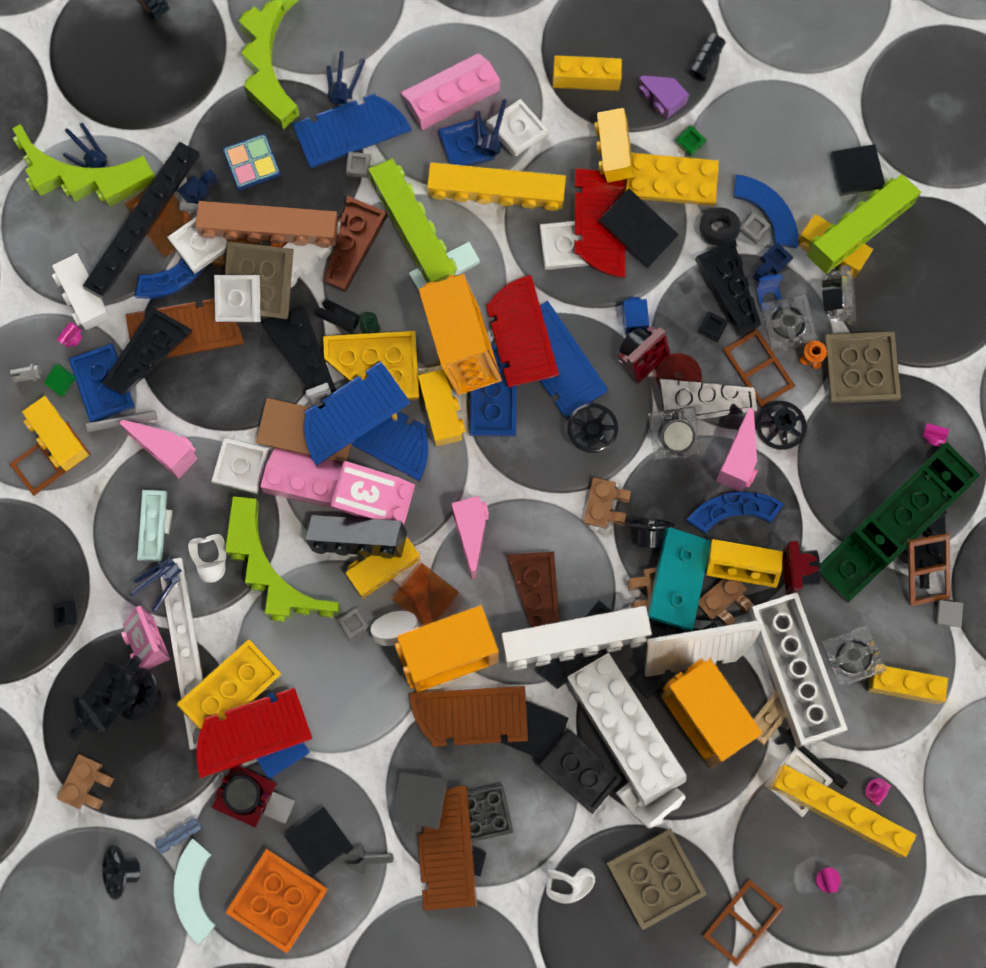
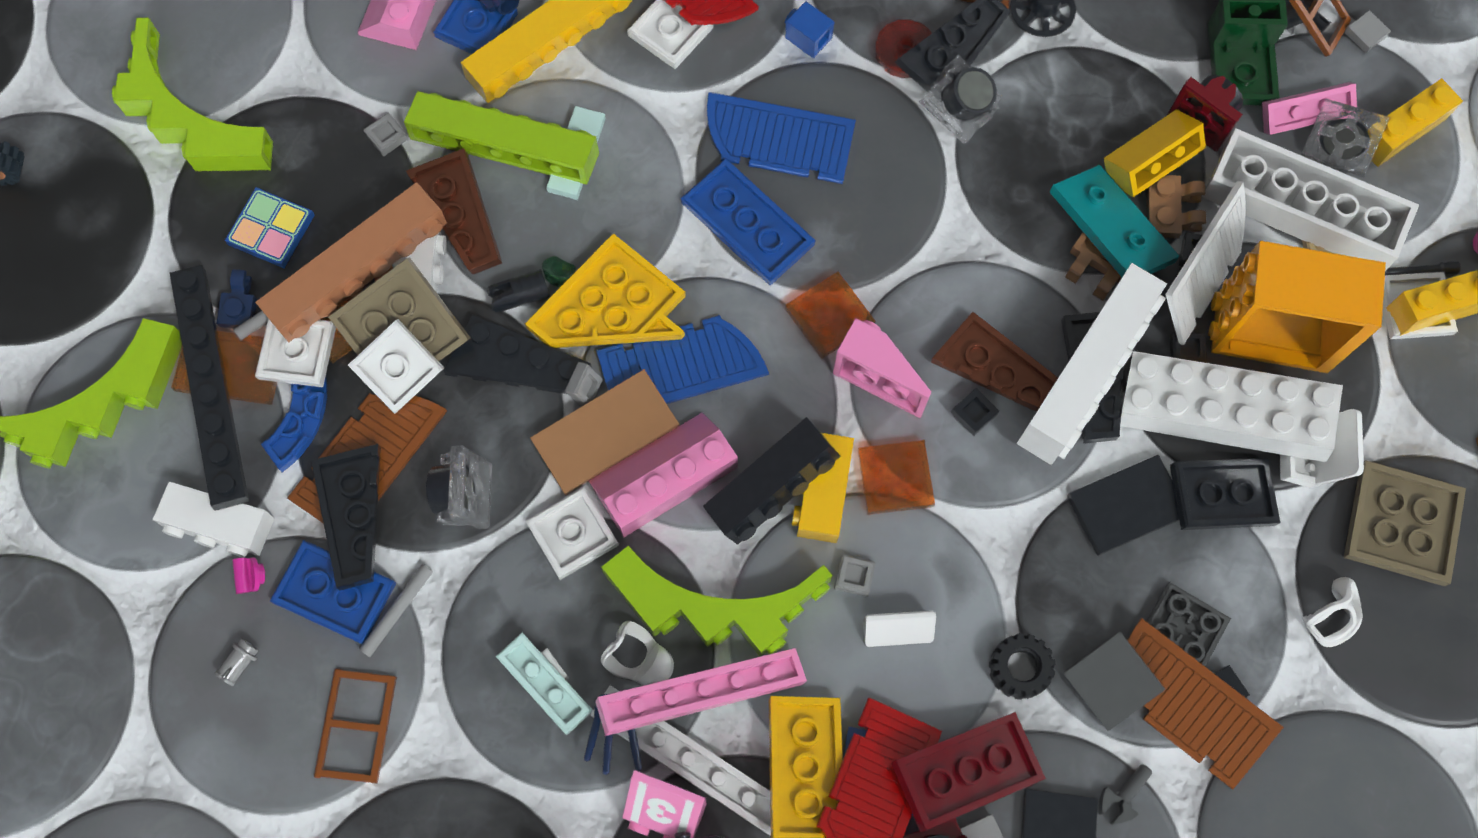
camera: 45 degrees left, 5 degrees down
(54, 434) = (335, 693): yellow brick -> none
(59, 380) = (283, 632): green tile -> none
(92, 158) = (85, 370): dark blue plant -> none
(165, 446) = (473, 588): bright pink slope -> none
(206, 389) = (461, 489): none -> clear piece
(217, 603) = (699, 691): none -> bright pink plate
(302, 768) = (967, 771): none -> dark red plate
(339, 92) = (294, 82): dark blue plant -> none
(345, 670) = (899, 628): none -> white slope
(349, 129) = (339, 110): blue piece -> none
(352, 412) = (634, 368): blue piece -> none
(369, 746) = (1039, 653): none -> black tyre
(372, 494) = (744, 423): bright pink slope -> none
(392, 624) = (905, 535): white tile -> none
(441, 408) = (717, 281): yellow brick -> none
(447, 649) = (993, 494): light orange window -> none
(459, 334) = (671, 179): light orange window -> none
(471, 715) = (1067, 546): dark orange piece -> none
(482, 478) = (827, 313): none -> clear orange tile
(499, 603) = (974, 411): none -> black plate
(521, 333) = (720, 142): red piece -> none
(592, 429) = (884, 166): black wheel -> none
(600, 502) = (962, 228): medium nougat plate -> none
(638, 349) = (853, 50): dark red piece -> none
(649, 535) = (1041, 211): black wheel -> none
(732, 505) = (1080, 116): blue tile -> none
(741, 459) = (1045, 57): bright pink slope -> none
(854, 617) = (1303, 108): none -> bright pink plate

